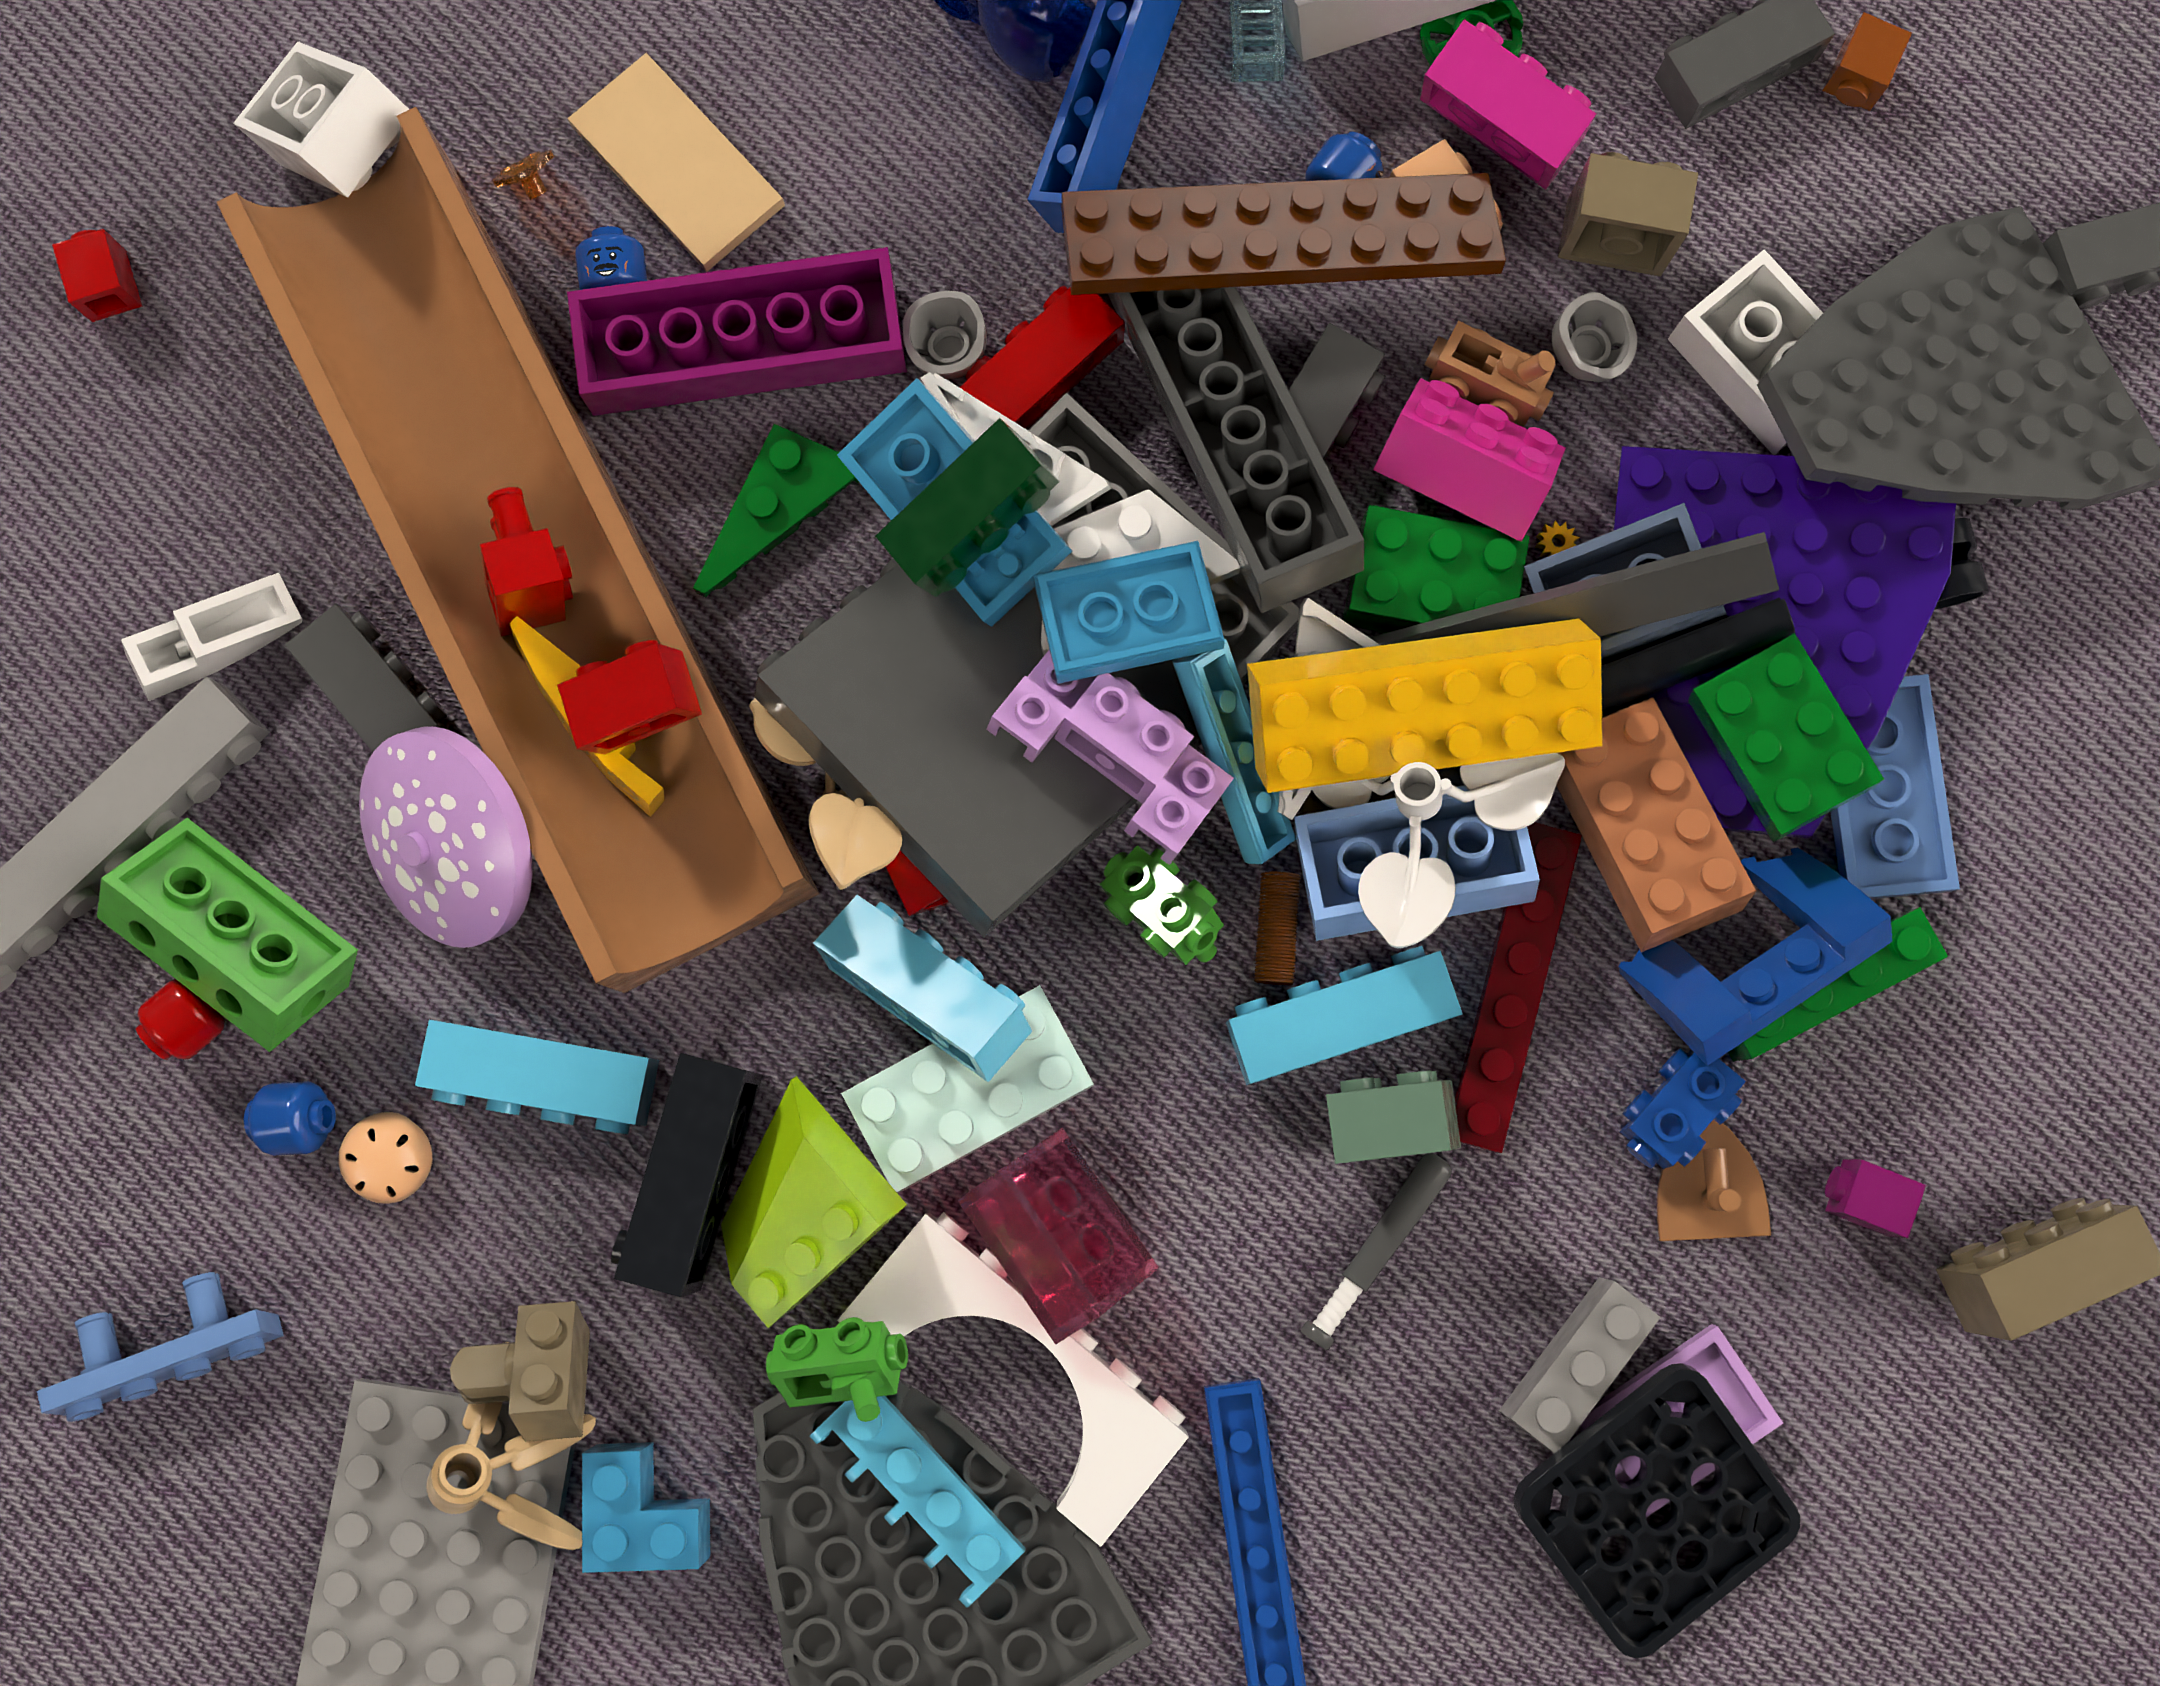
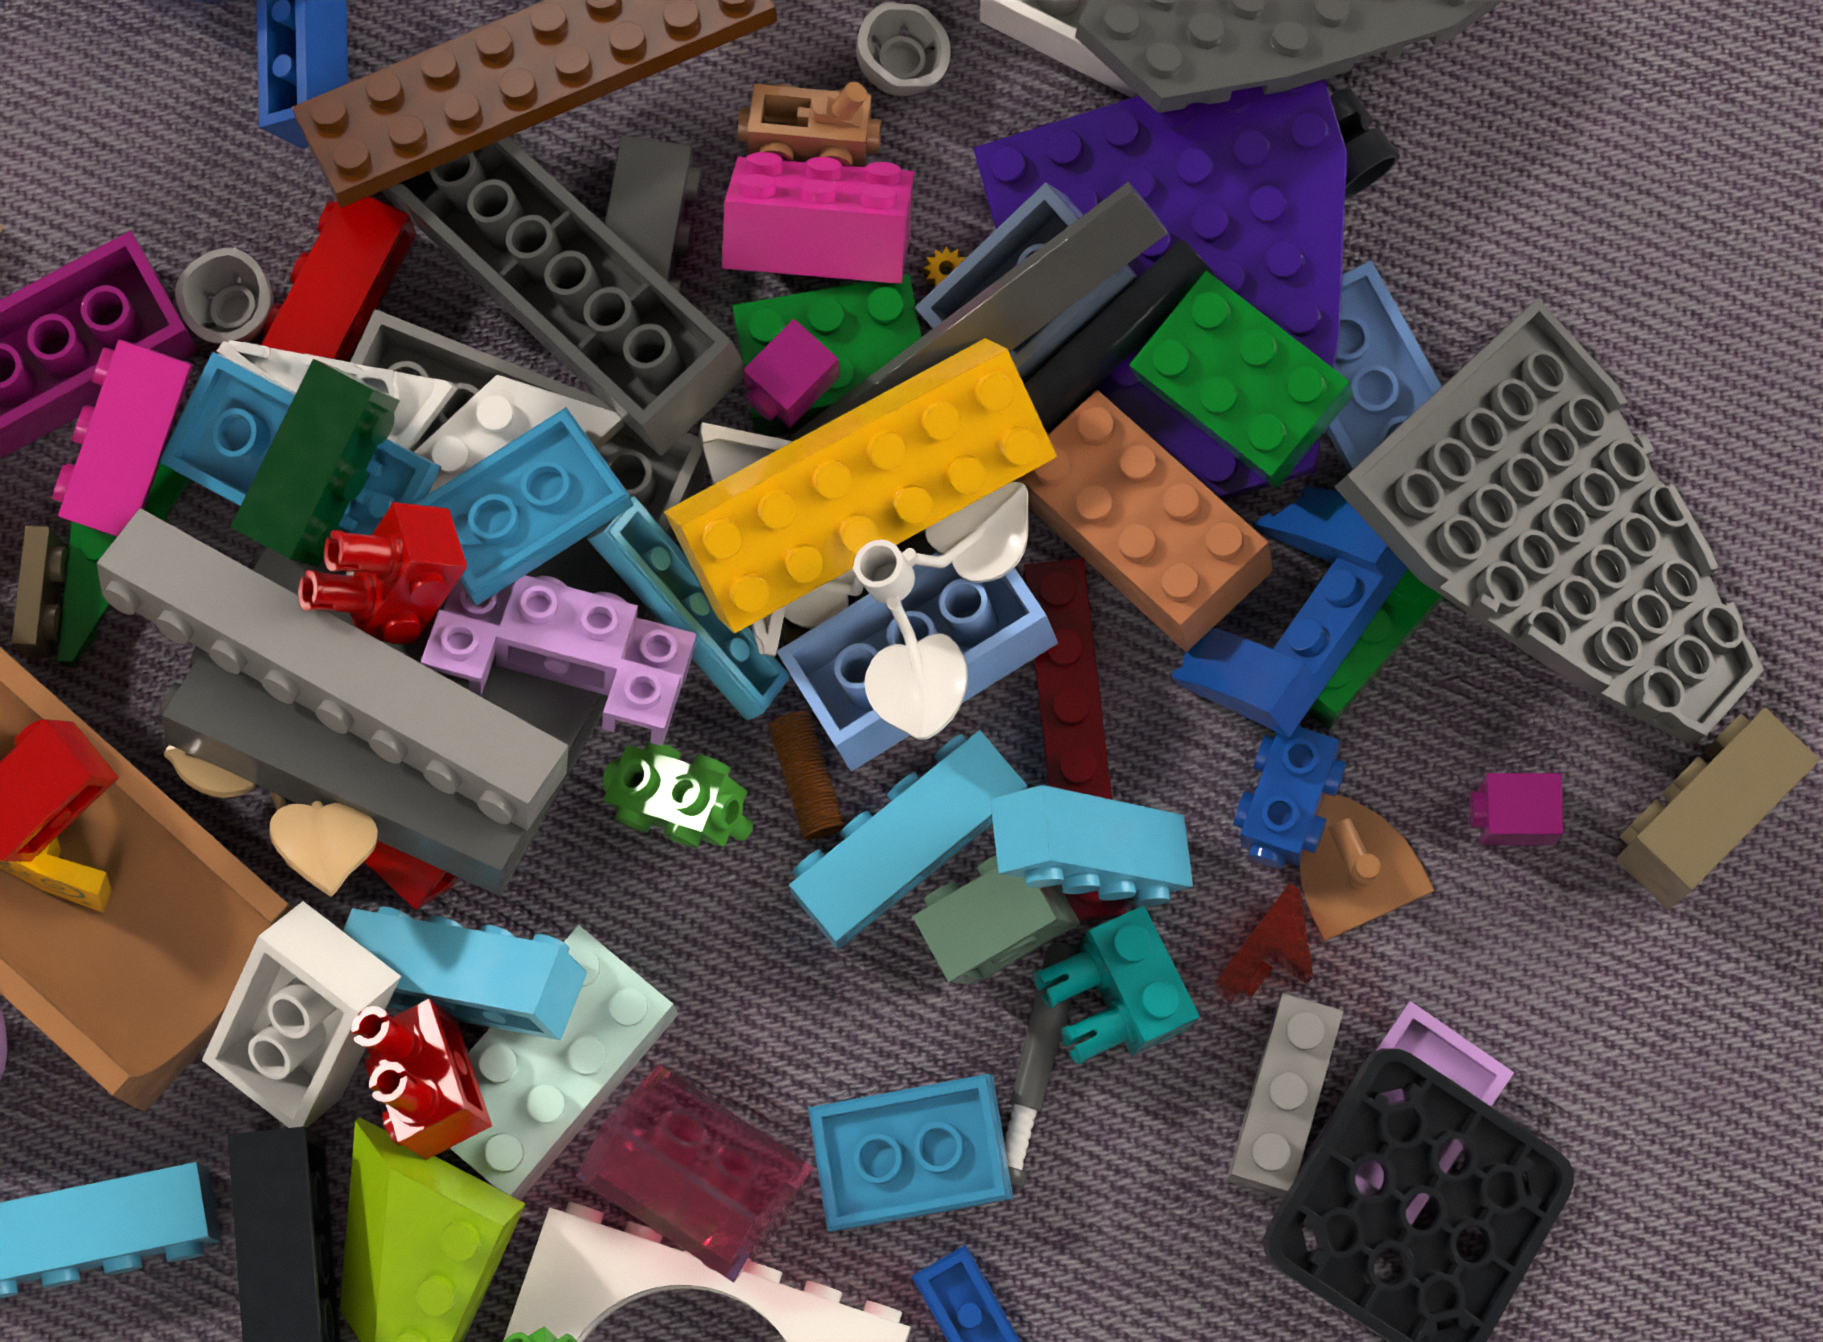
camera: 20 degrees left, 5 degrees down
(692, 536) = (36, 613): none -> dark tan plate
(779, 972) = (293, 1014): none -> white brick
(813, 423) = (122, 437): none -> dark pink brick
(860, 1068) = (422, 1077): none -> red brick
(915, 693) = (332, 670): none -> light grey brick
(995, 631) = (392, 576): none -> red brick
(1244, 1285) = (910, 1153): none -> dark azure tile
(1398, 585) = (790, 374): none -> magenta brick
(1489, 1219) = (1135, 981): none -> teal brick
(1501, 1094) = (1091, 845): none -> medium azure brick
(1626, 1223) = (1280, 937): none -> clear red slope
(2001, 974) = (1554, 532): none -> dark grey wing

